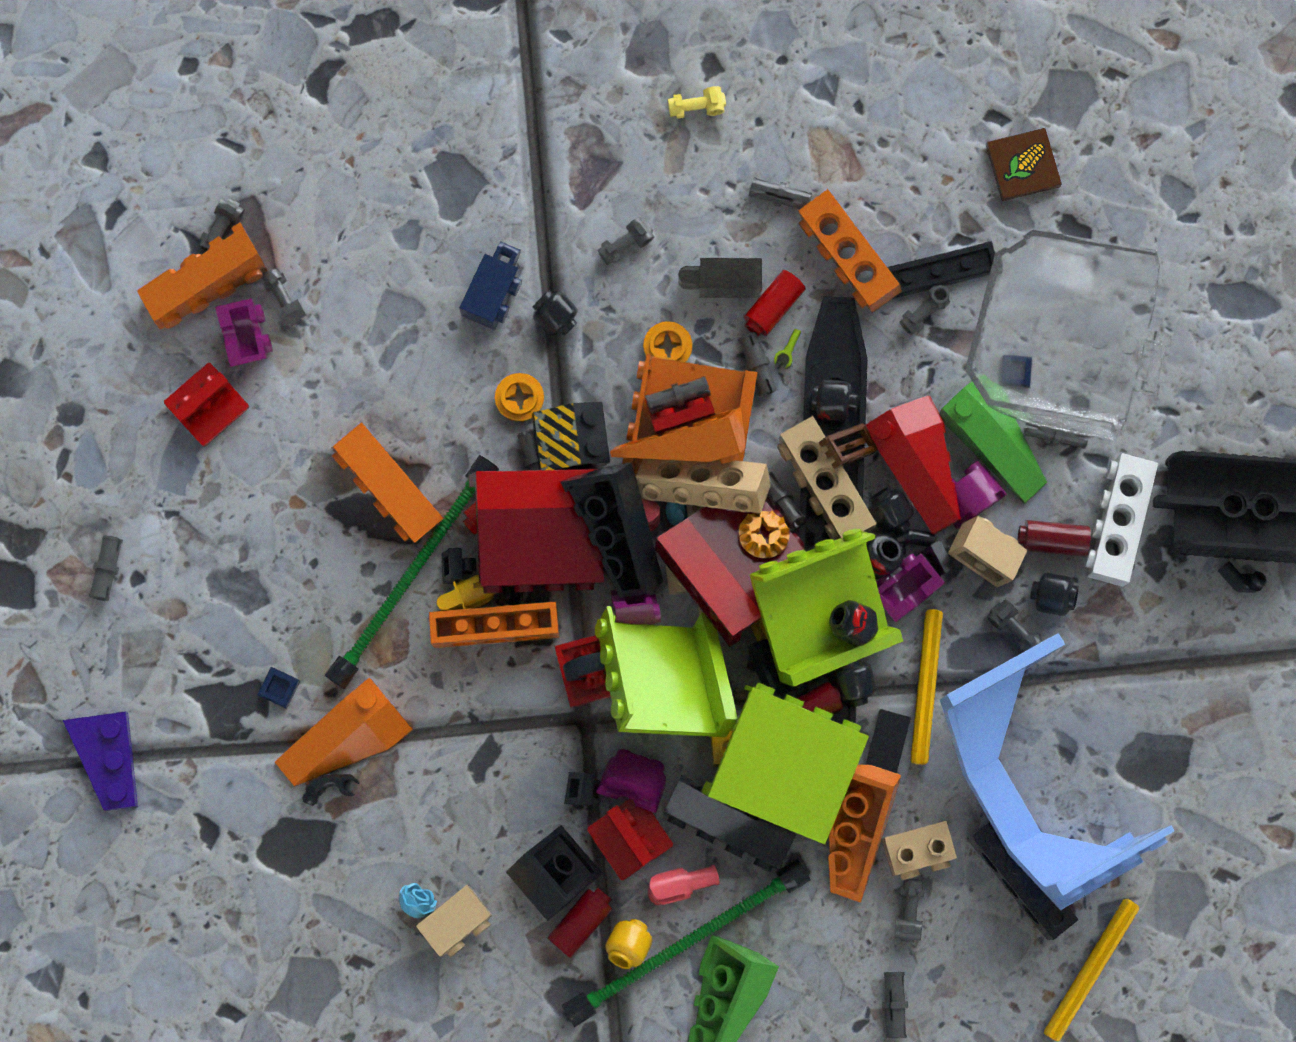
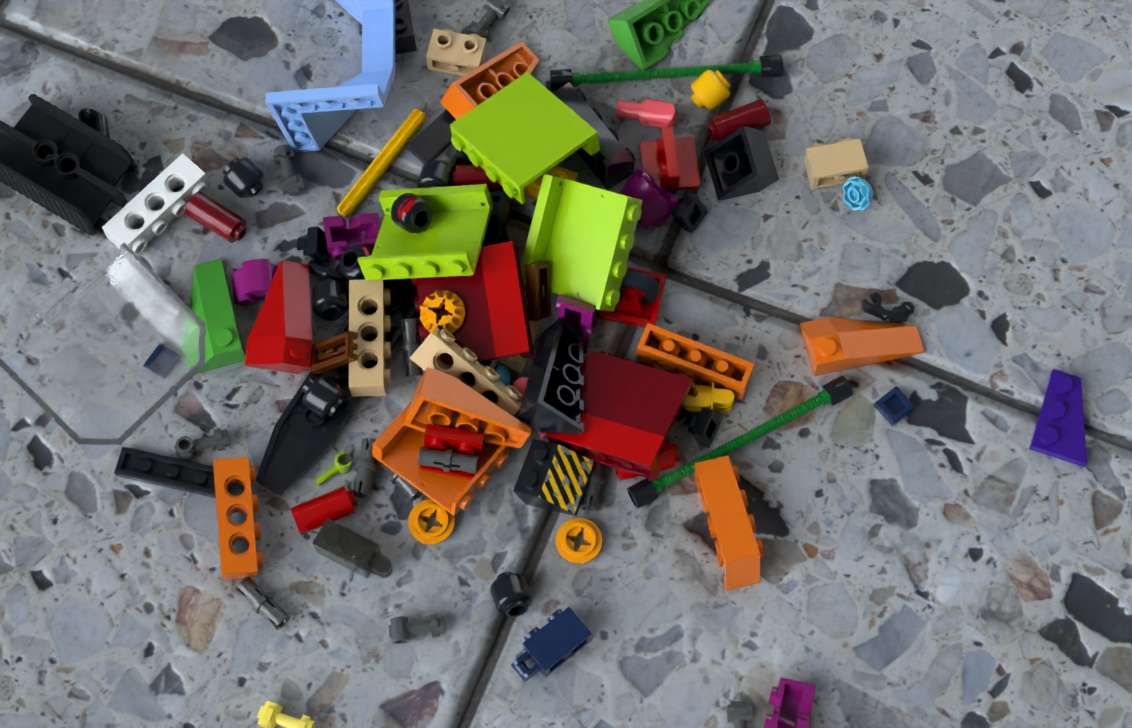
camera: 150 degrees left, 10 degrees down
(105, 568) = (999, 570): dark grey pin -> none
(206, 404) = (851, 669): red bracket -> none
(686, 616) = (538, 290): none -> reddish brown tile
(987, 551) = (274, 228): tan brick -> none
(1023, 164) = (45, 525): reddish brown tile -> none

